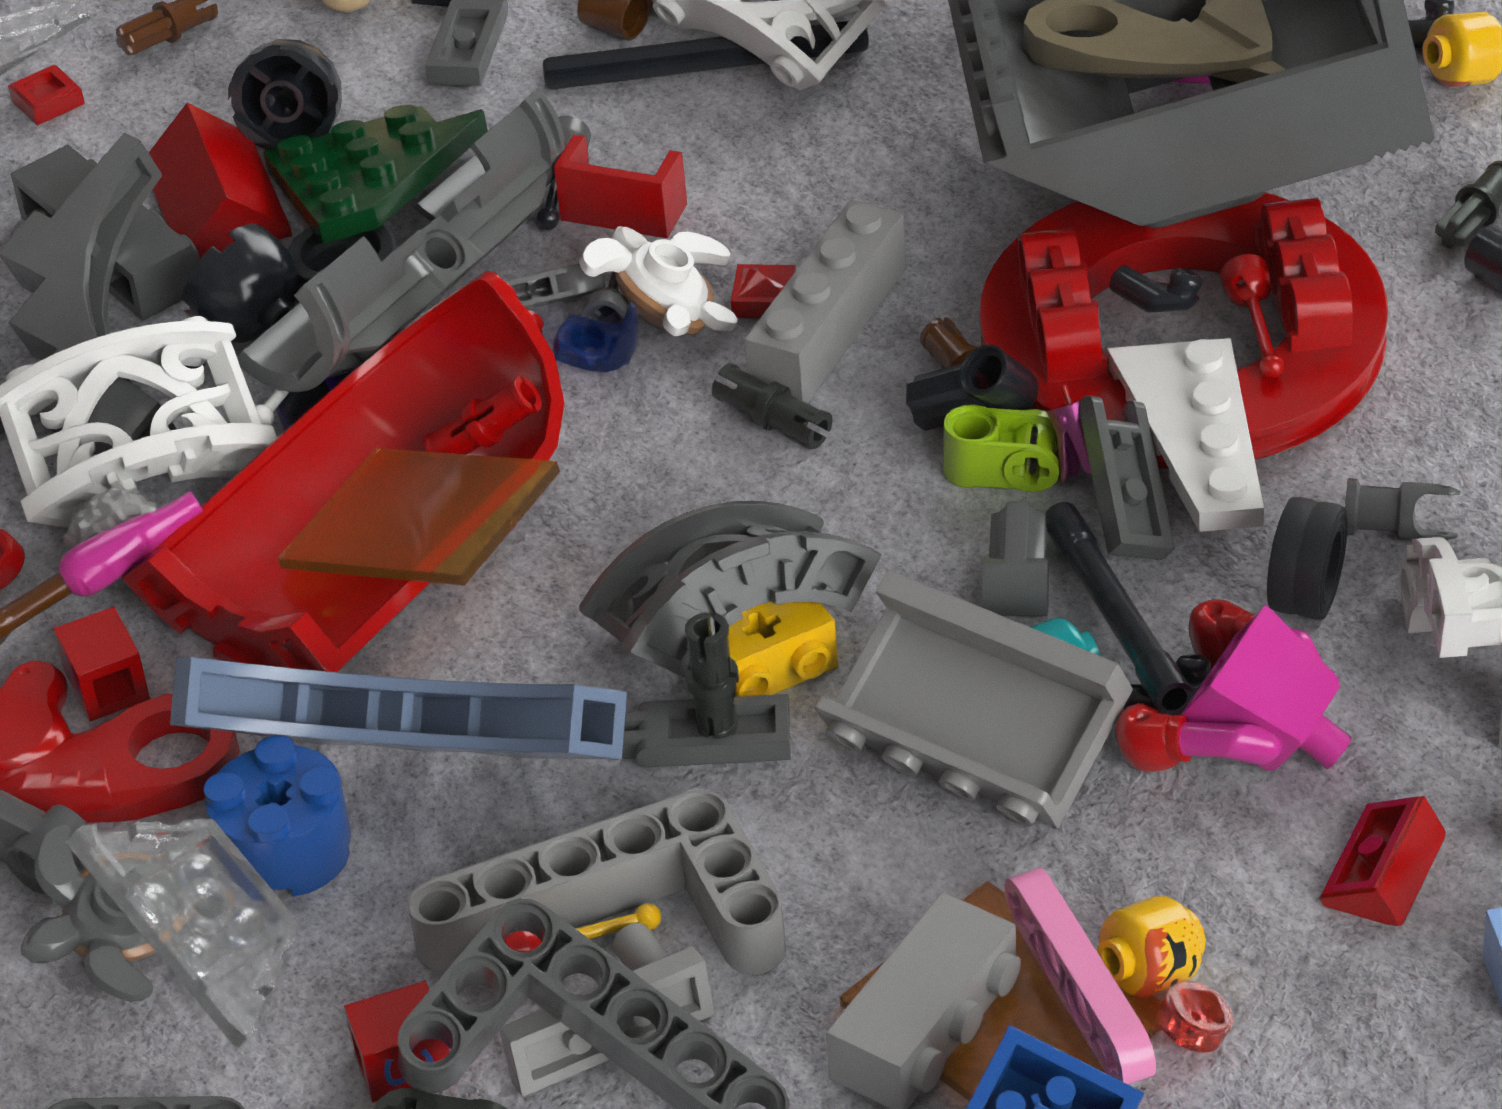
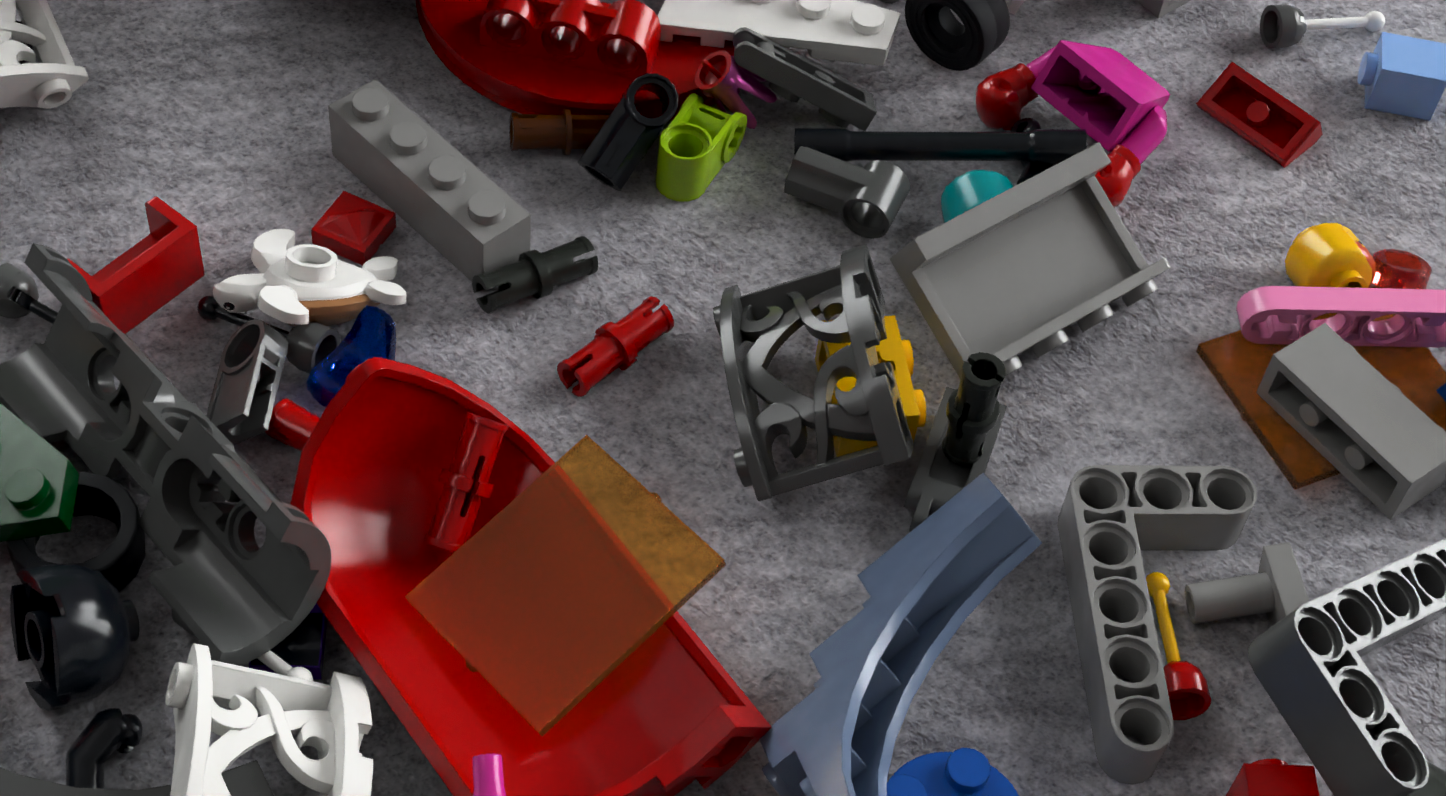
camera: 80 degrees left, 10 degrees up
(717, 480) = (615, 346): none -> red pin

